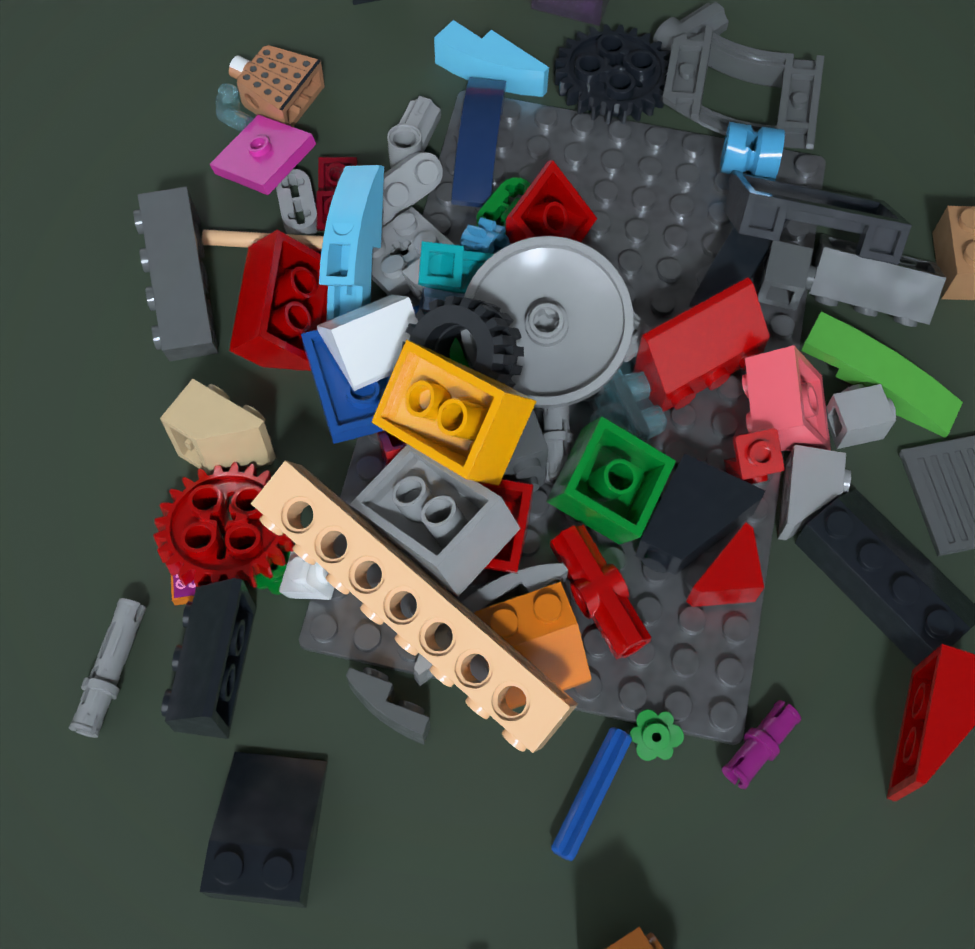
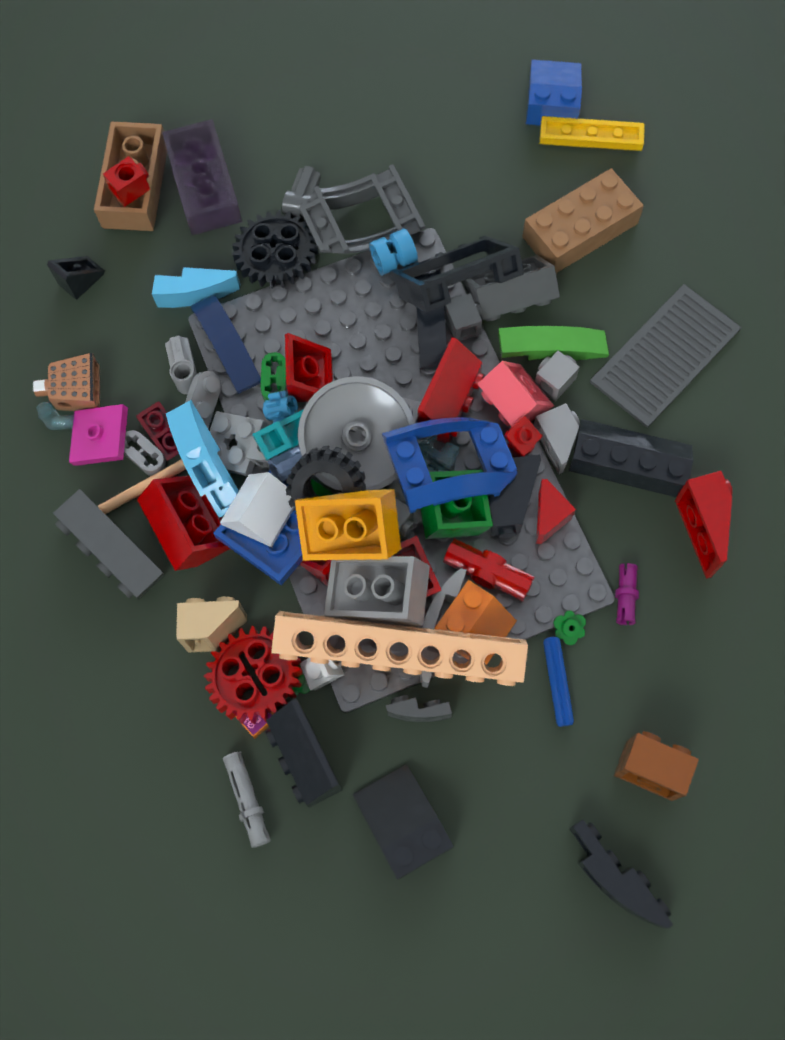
camera: 30 degrees left, 5 degrees up
(579, 404) = (414, 475): none -> blue wedge

